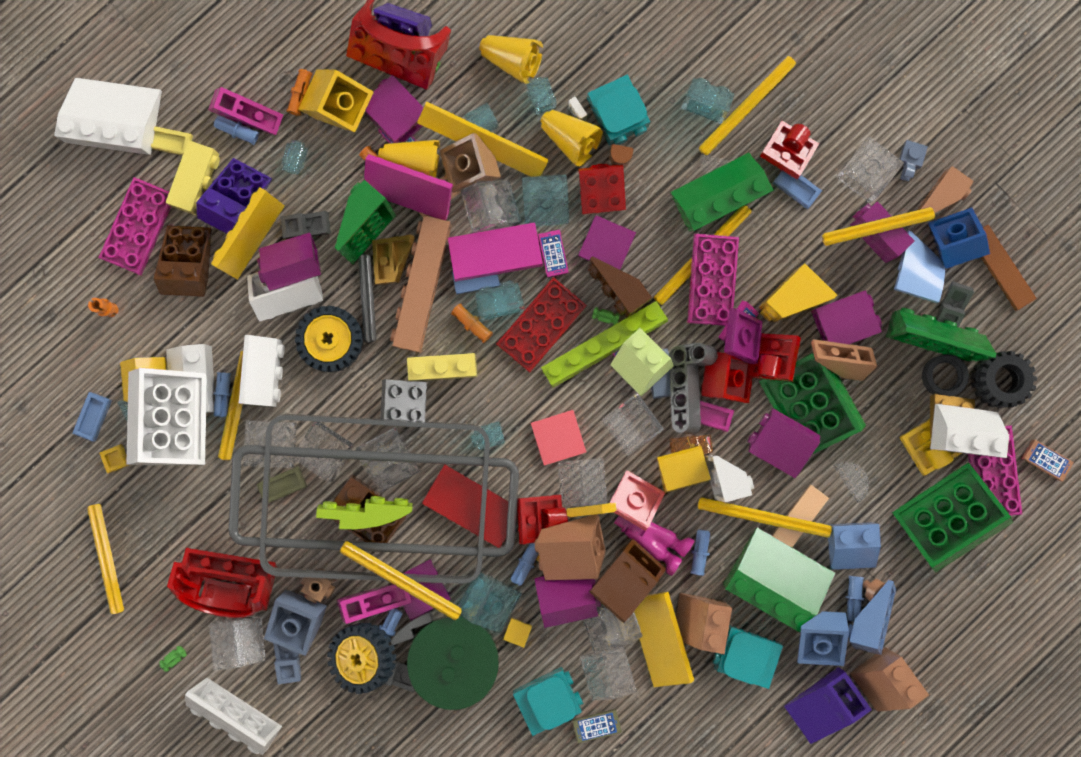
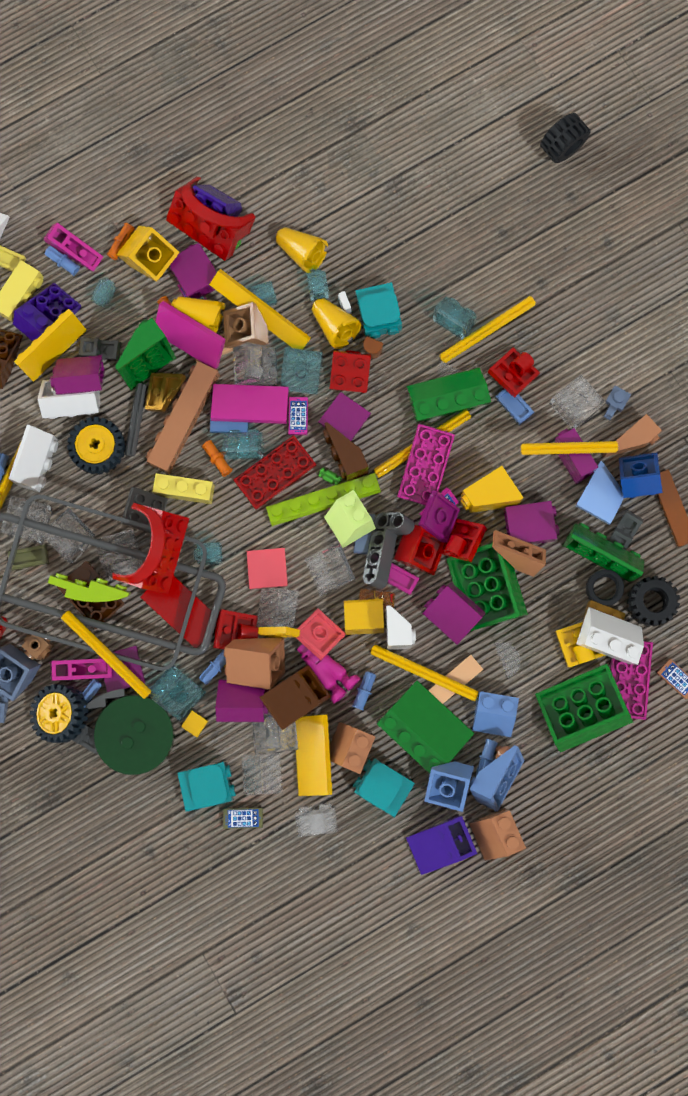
camera: 20 degrees right, 5 degrees down
(442, 430) = (166, 543): none -> red piece
(683, 712) = (317, 820): none -> clear brick

